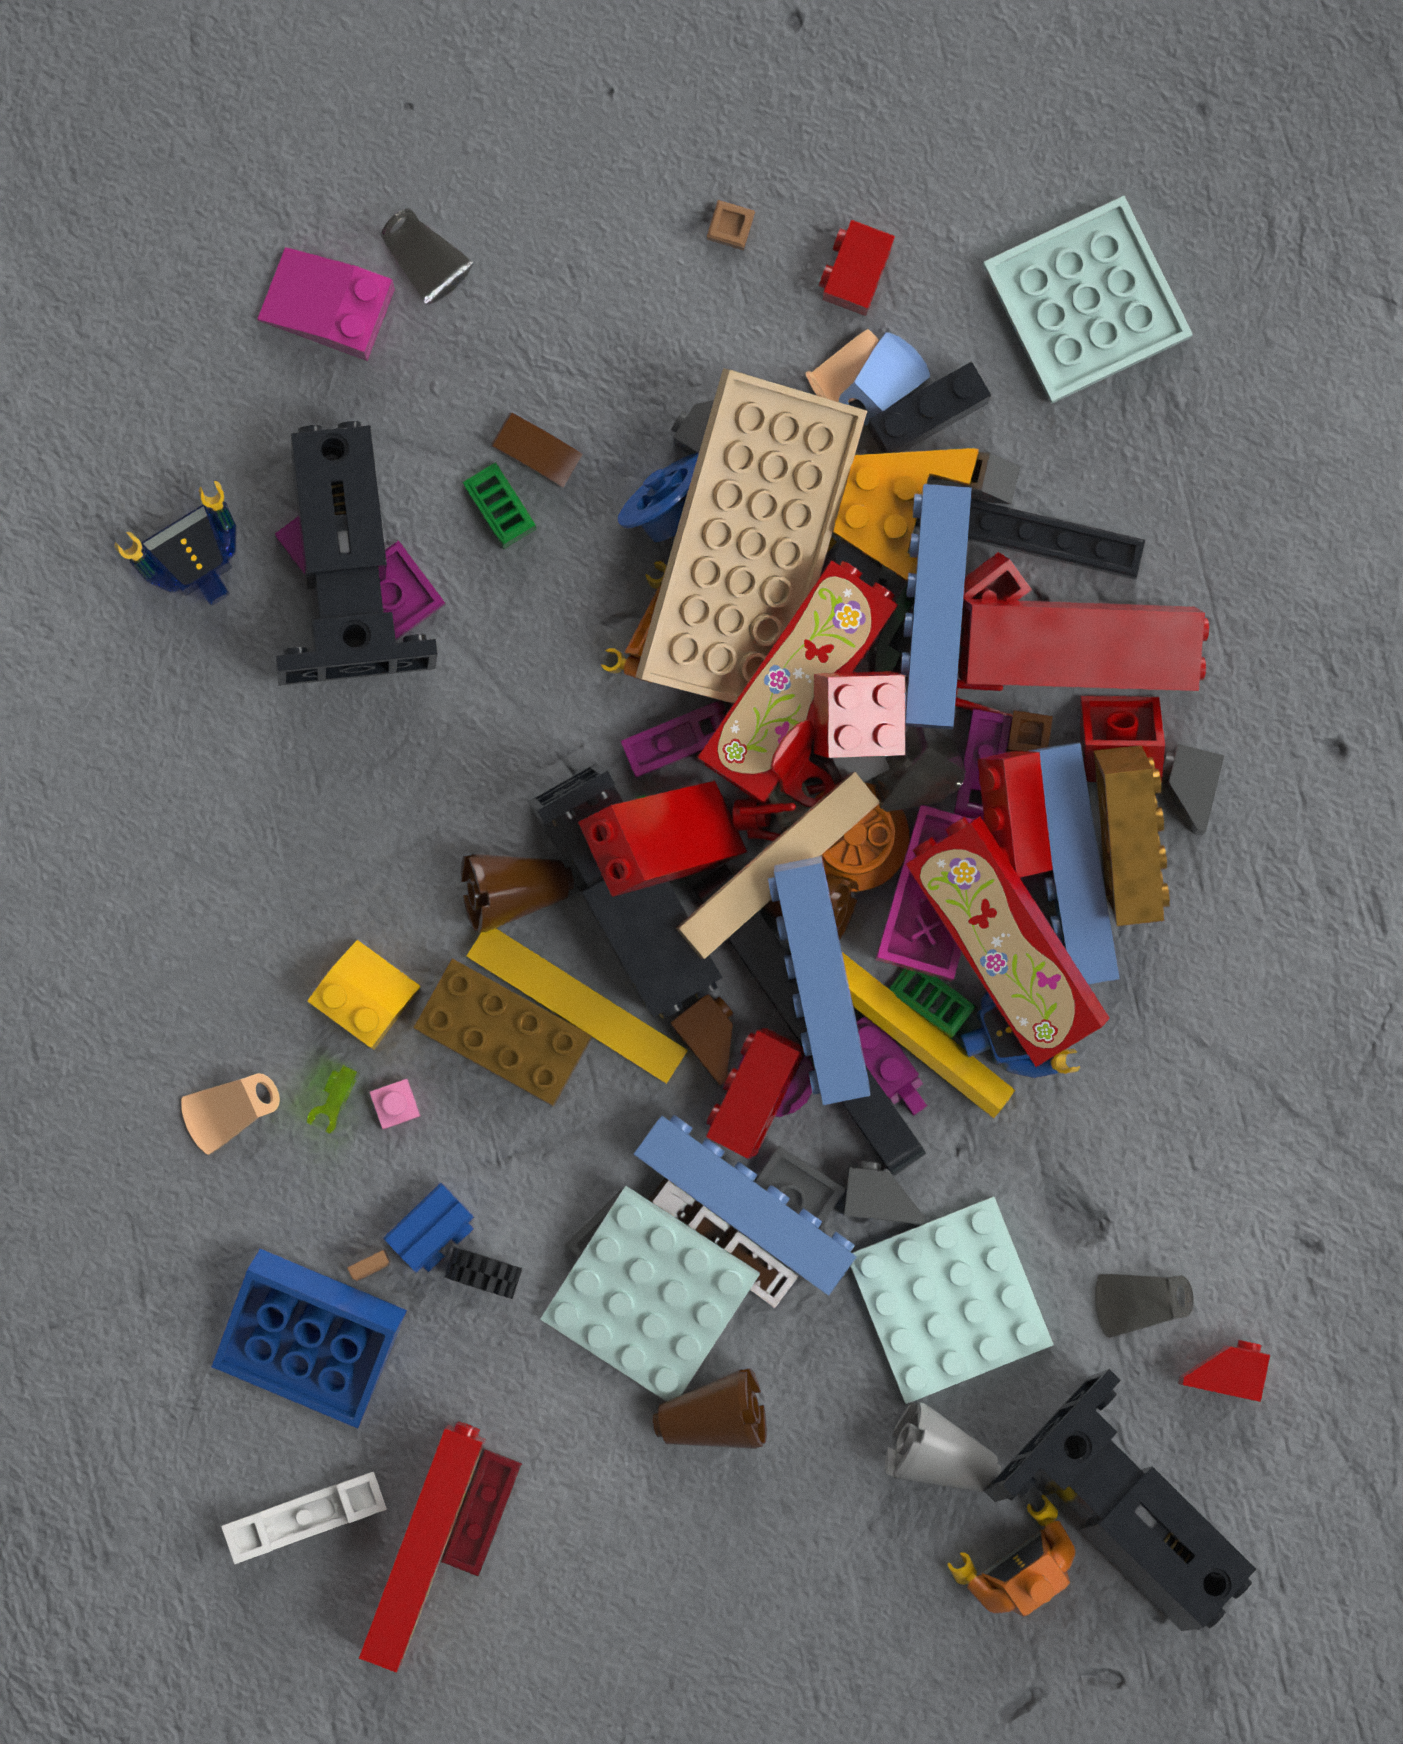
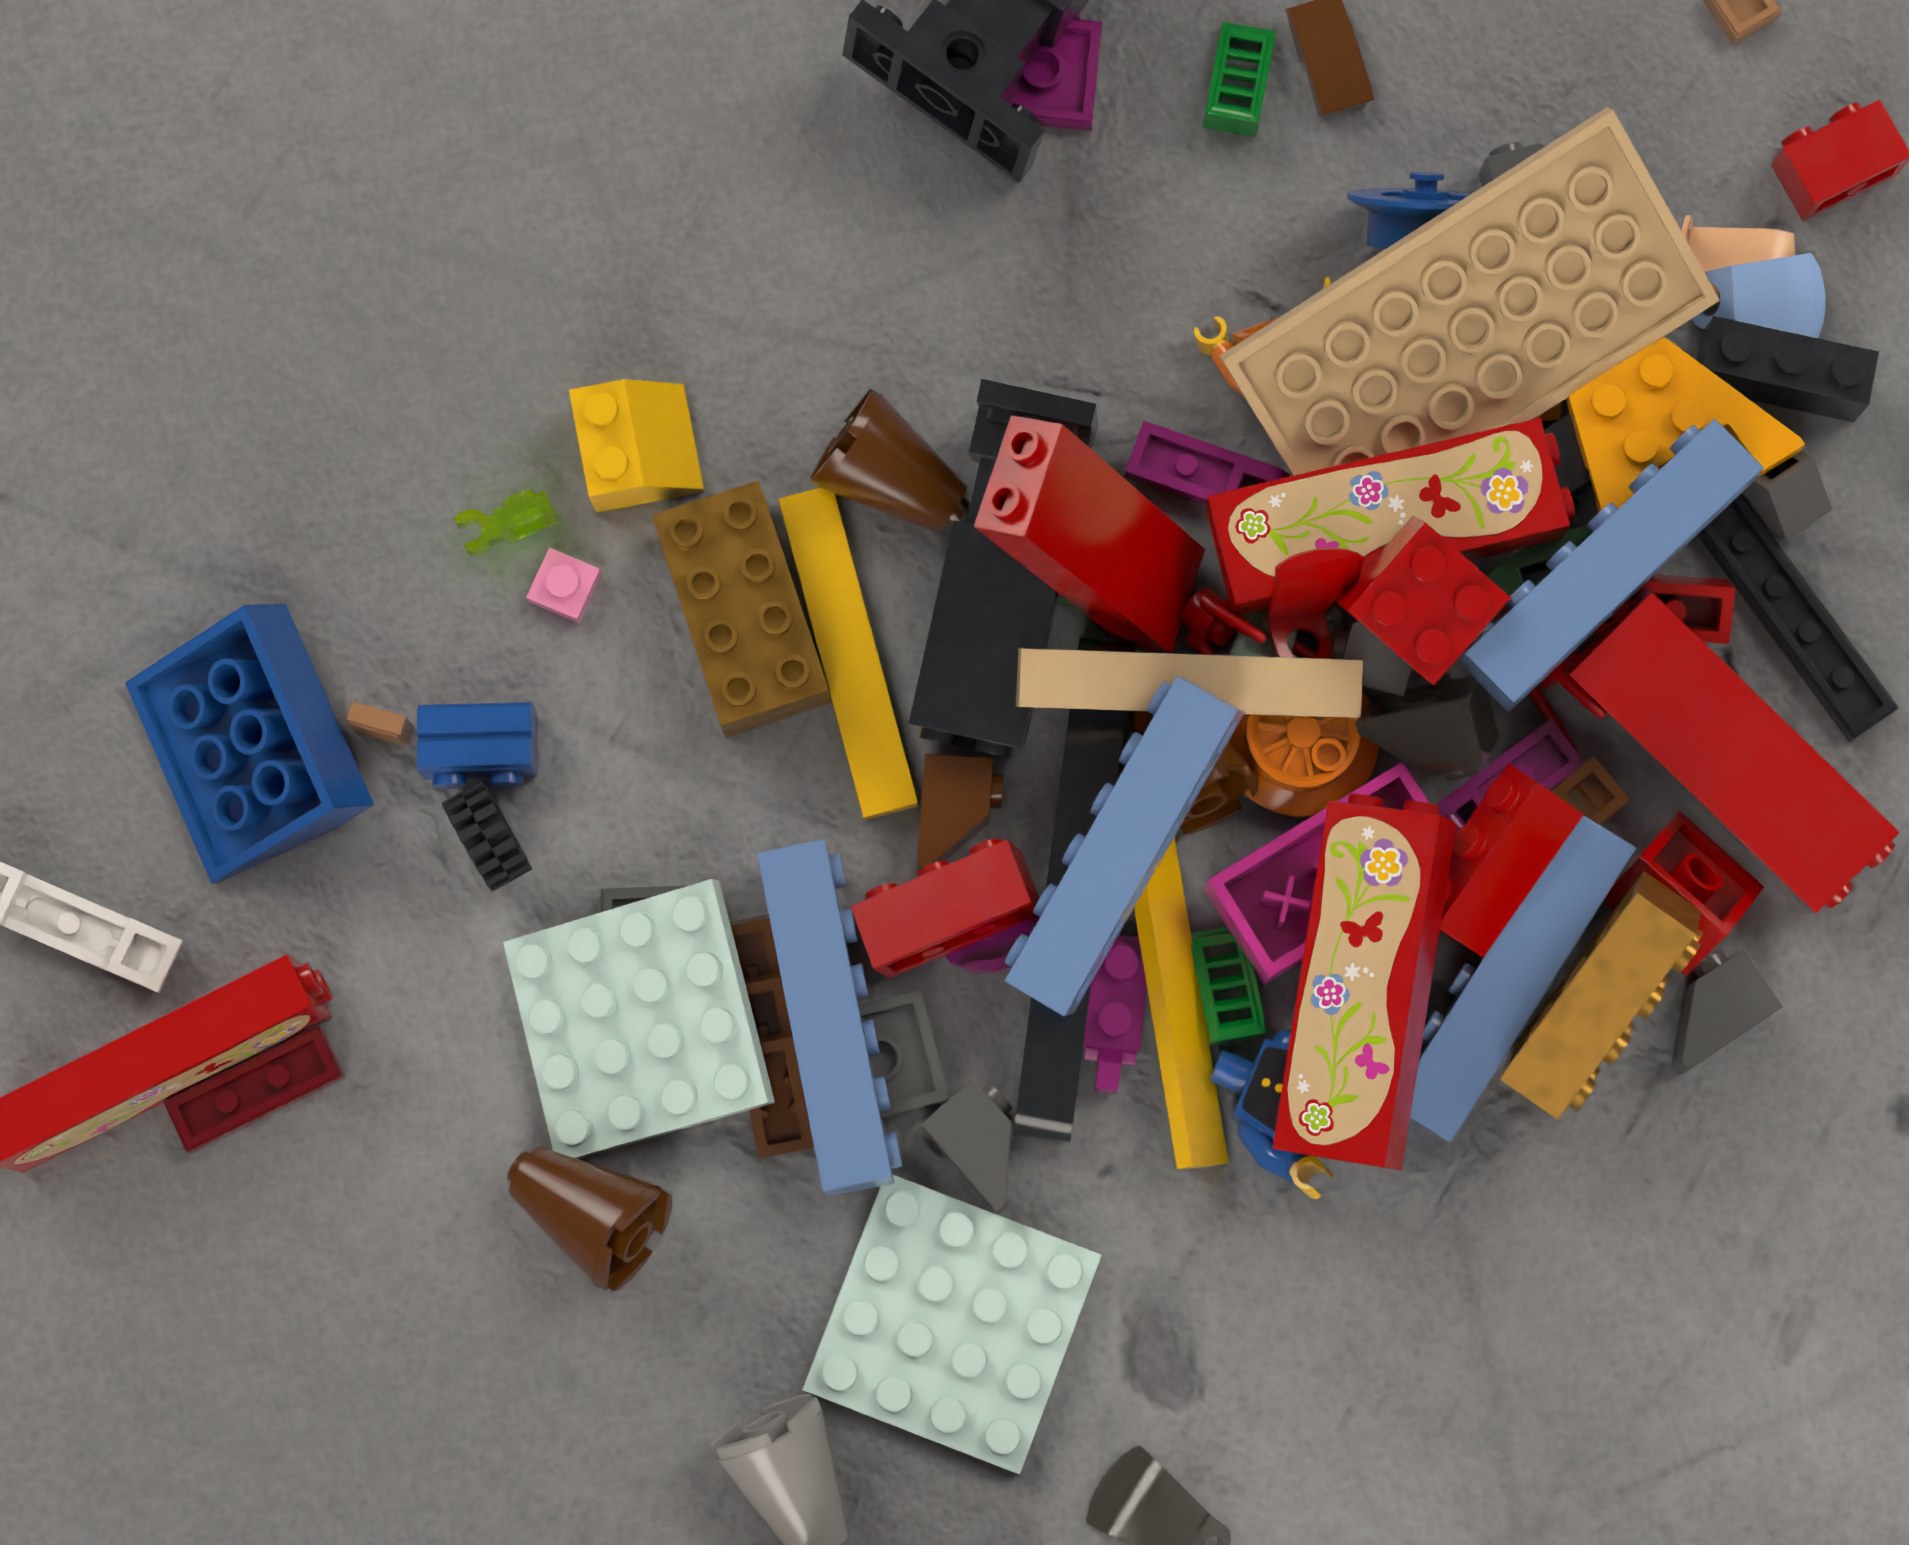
camera: 50 degrees right, 5 degrees down
(226, 1110) = (387, 433): light nougat piece -> none

